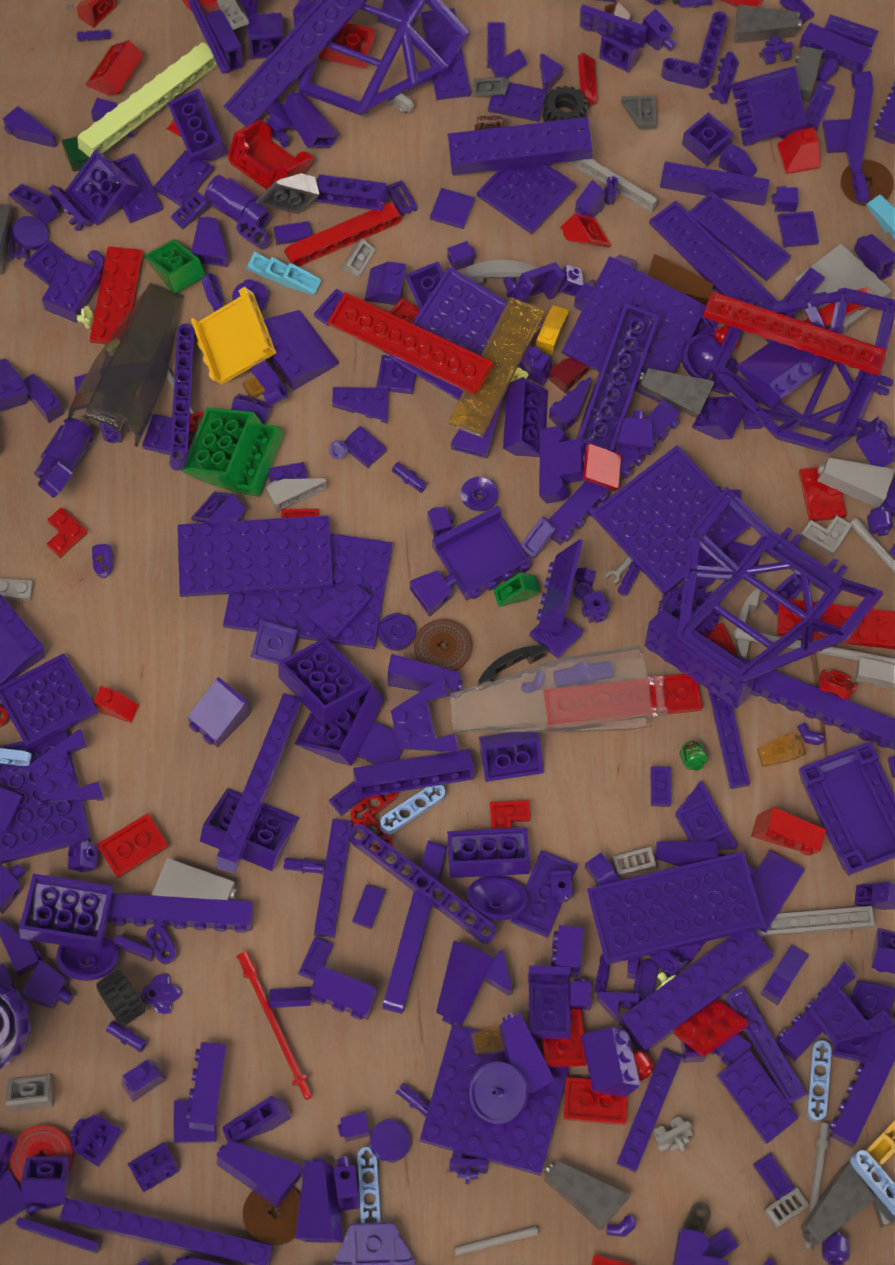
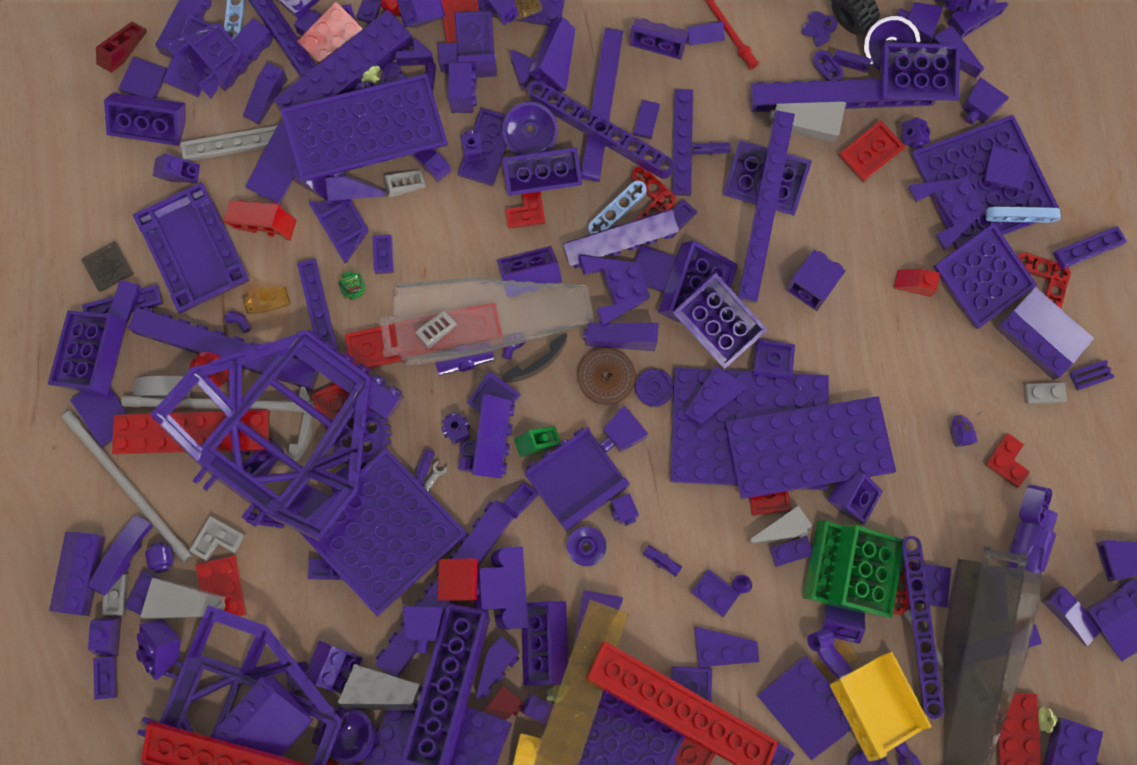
camera: 175 degrees right, 10 degrees up
(317, 955) = (687, 70): dark purple tile -> none
(606, 691) = (431, 324): none -> light grey slope

